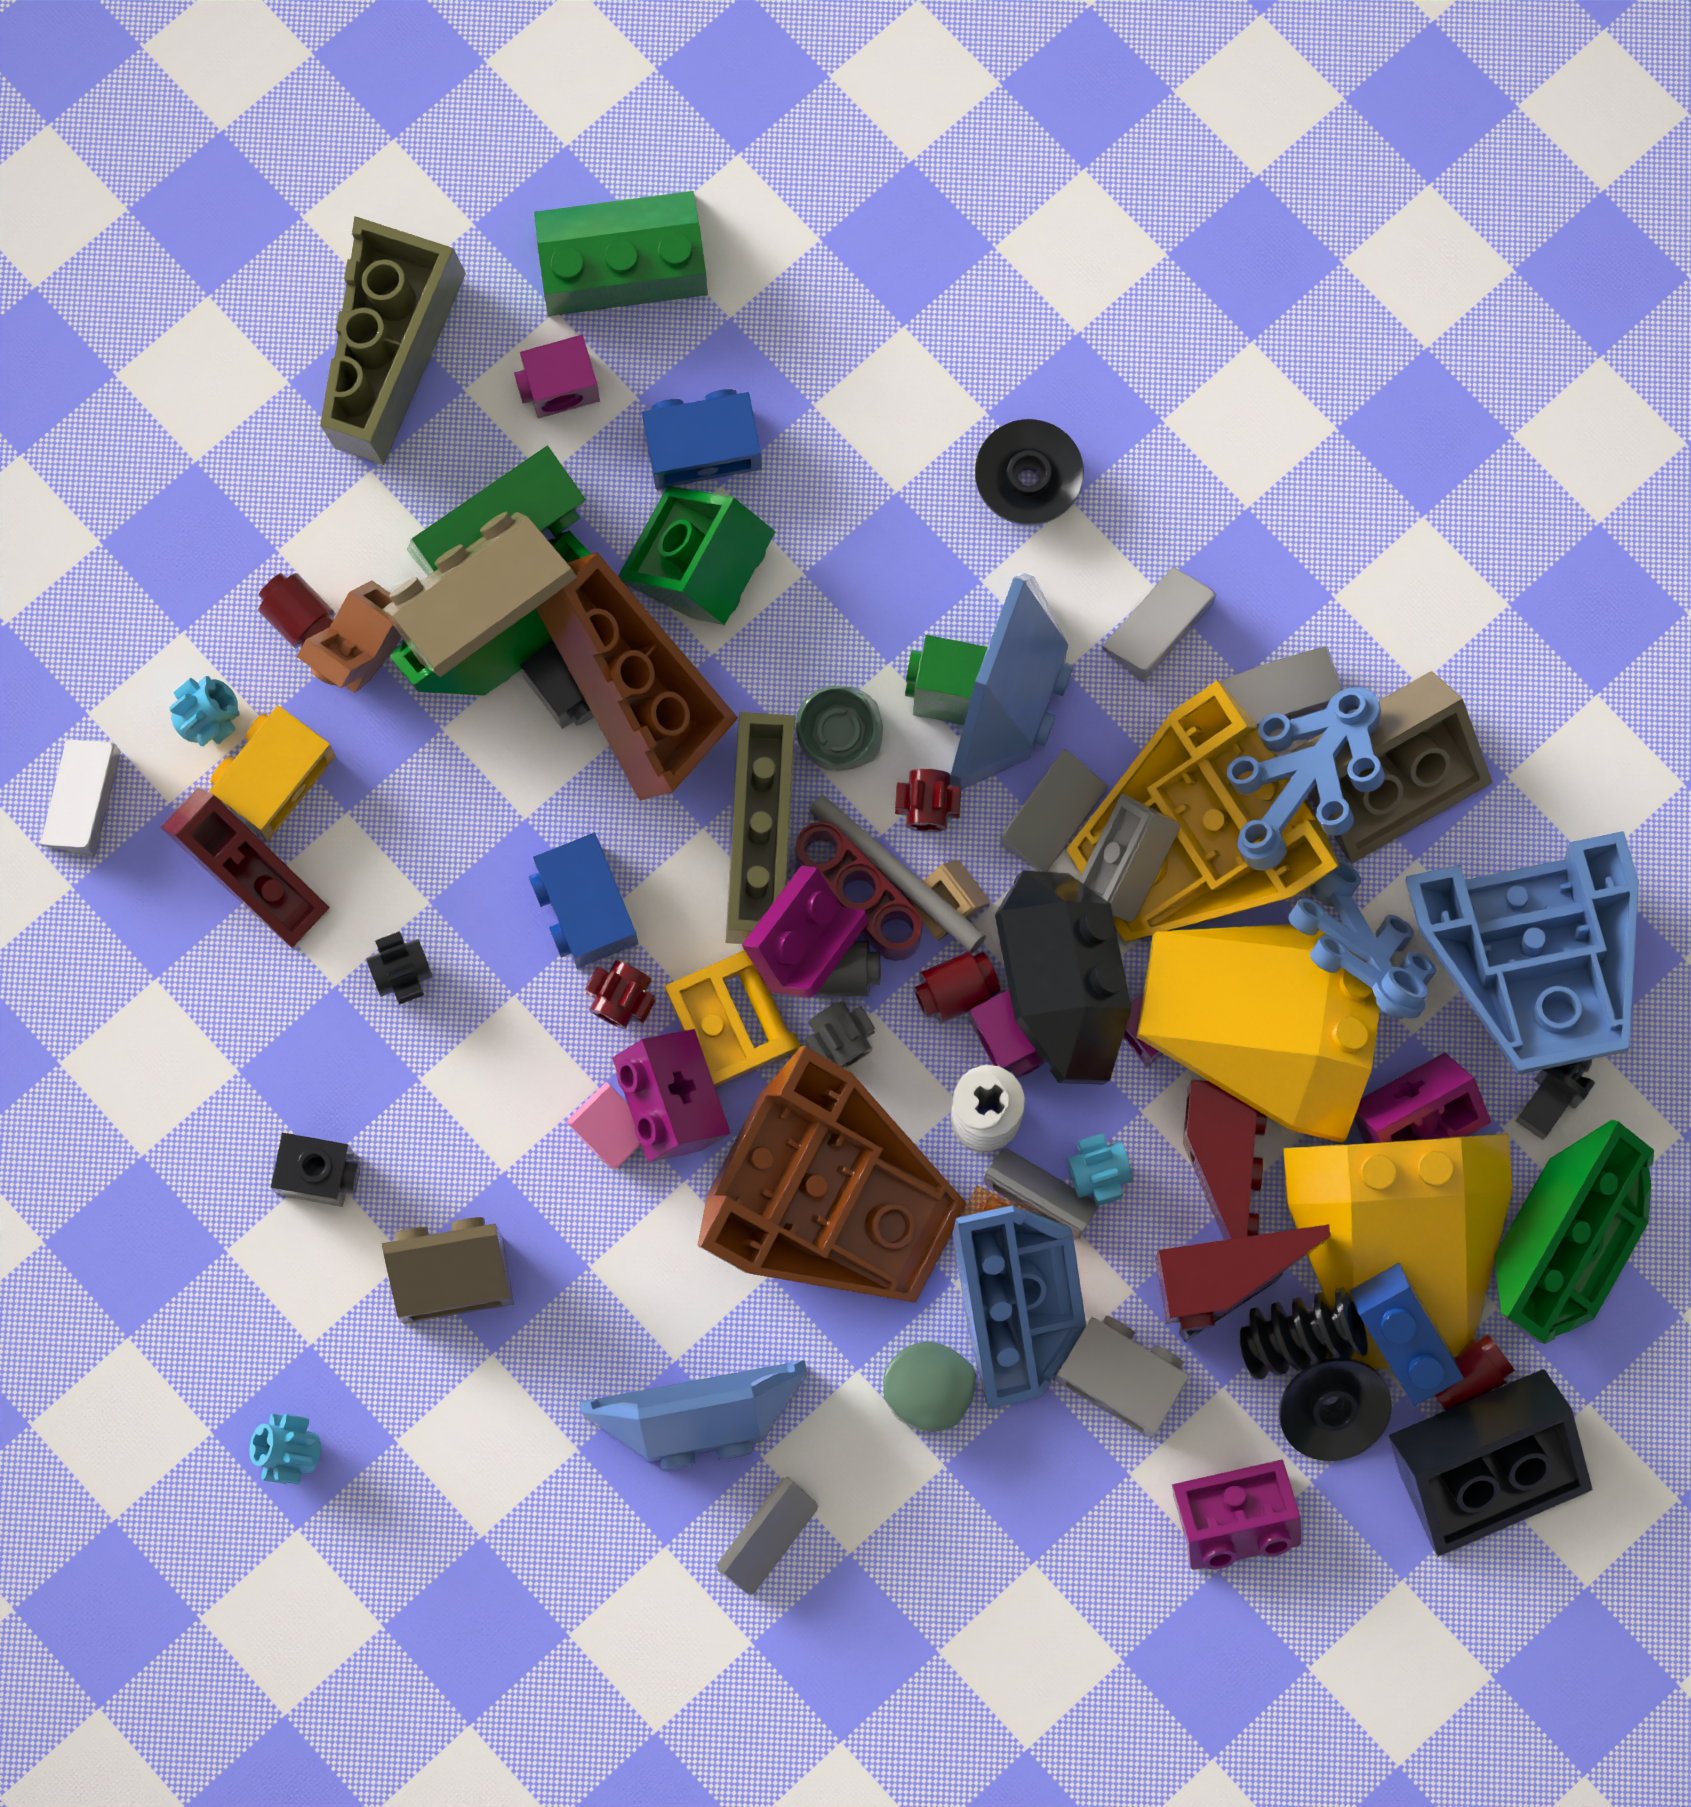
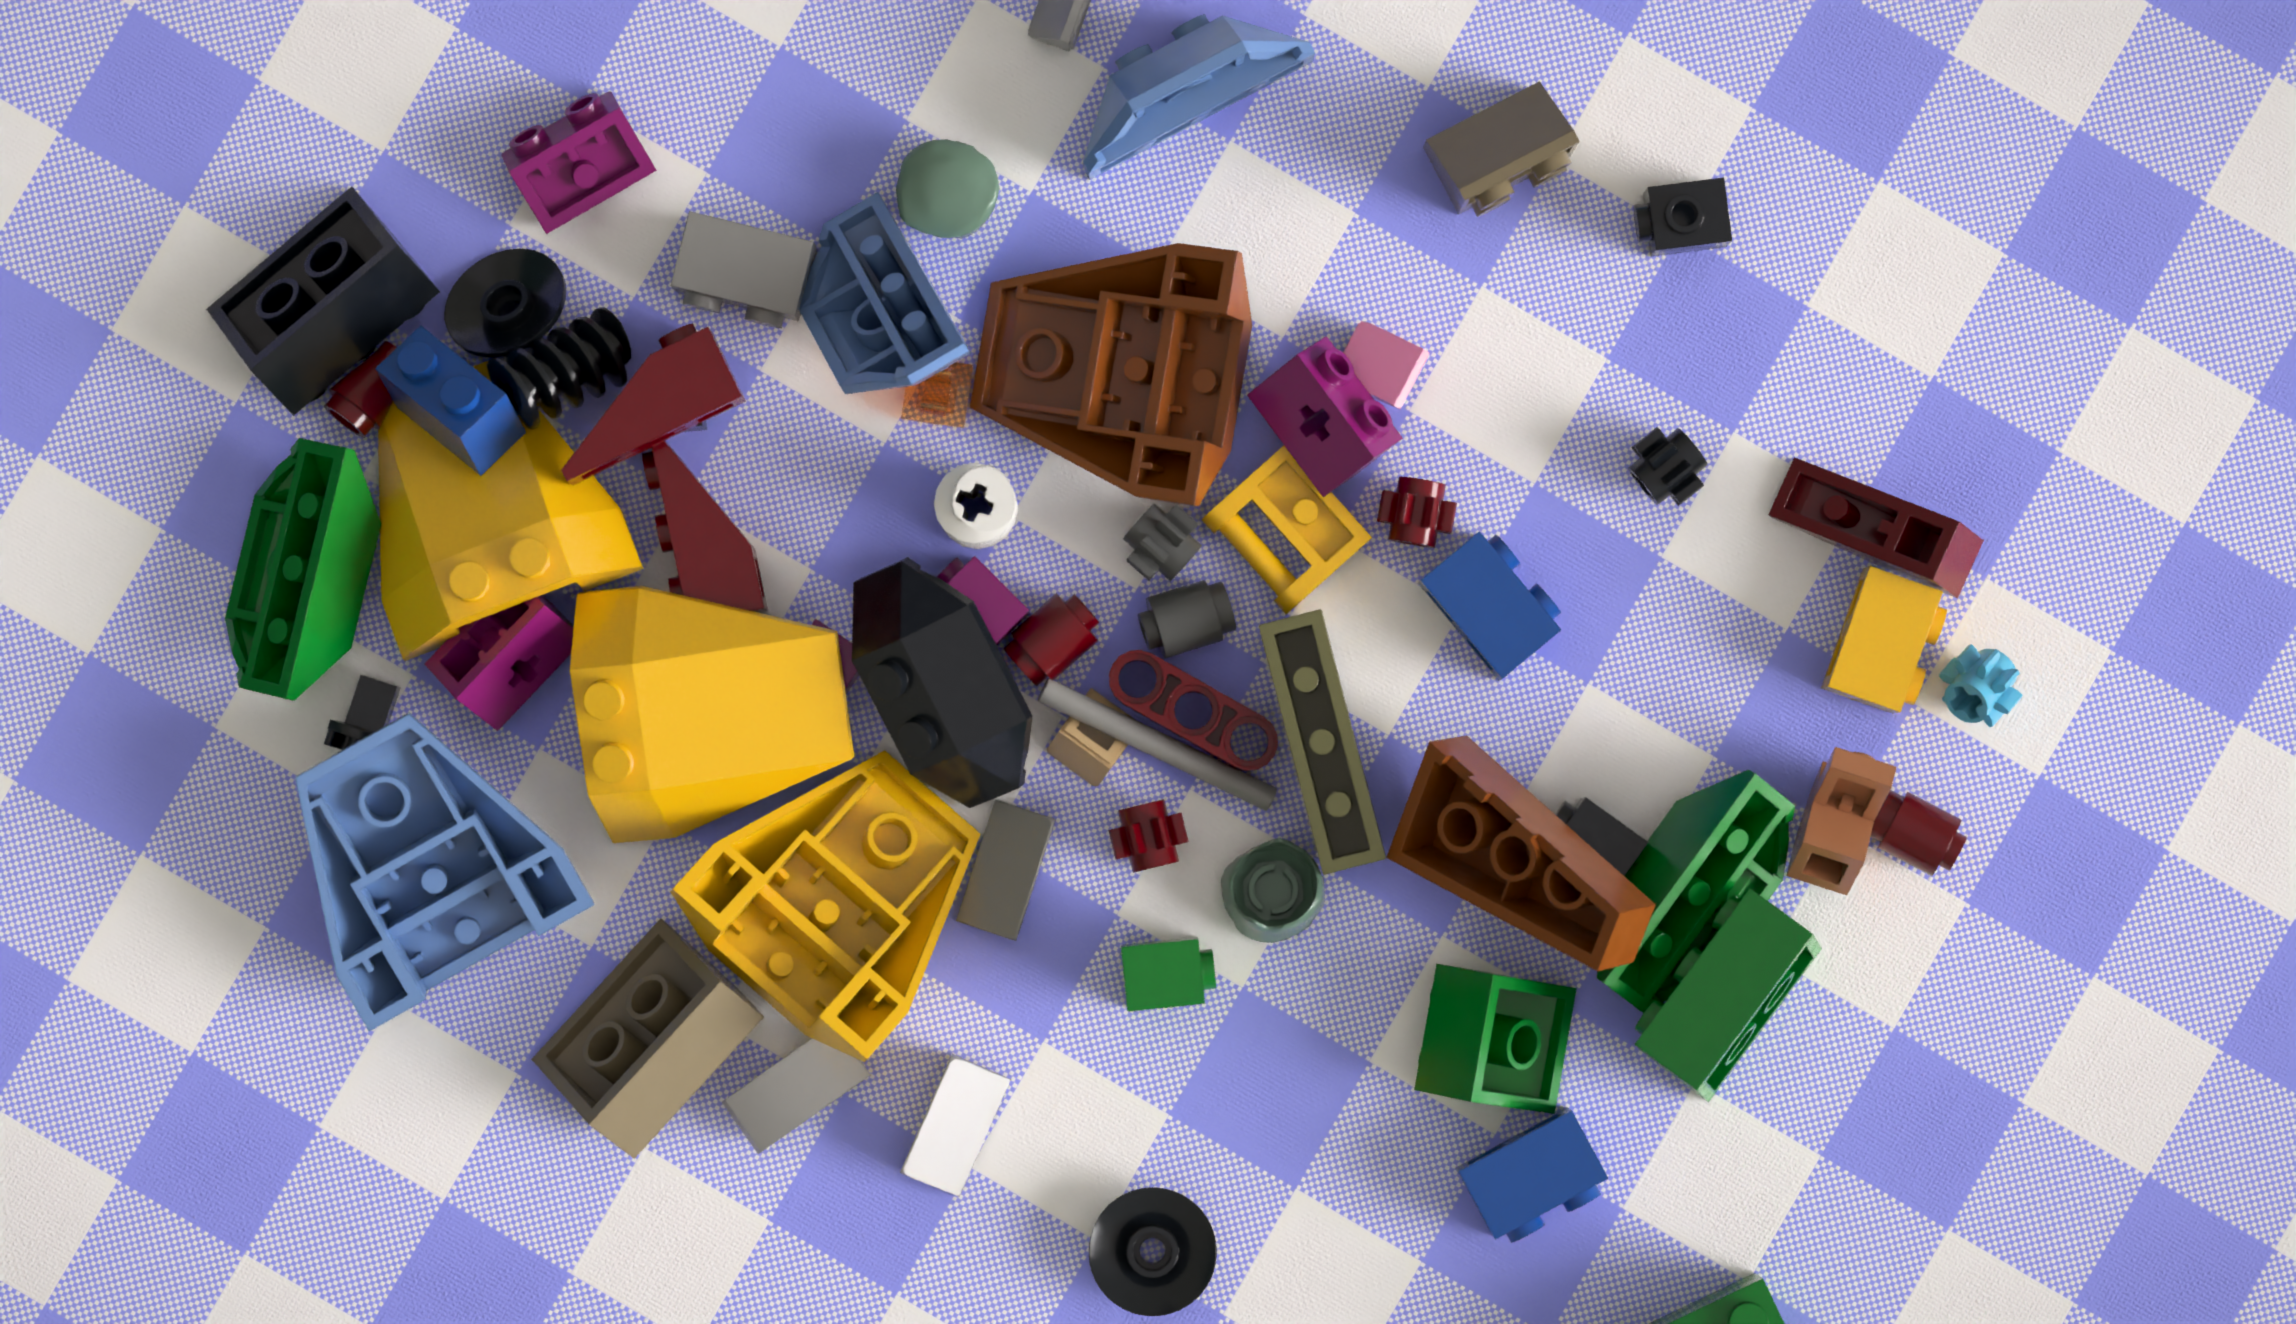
camera: 165 degrees right, 10 degrees up
(81, 796) = (2085, 551): slope -> none
(386, 334) = (1927, 1183): olive wedge -> none
(477, 592) = (1714, 886): dark tan slope -> none
(557, 377) = (1718, 1196): magenta brick -> none
(803, 935) = (1233, 627): magenta bracket -> none
(1013, 687) = (1088, 994): medium blue wedge -> none
(1039, 1192) = (890, 442): light grey slope -> none
(1099, 1169) = (835, 483): medium azure gear -> none
(1129, 855) = (908, 840): light grey slope -> none
(1308, 768) = (733, 993): medium blue plant -> none
(1397, 989) = (567, 763): medium blue plant -> none

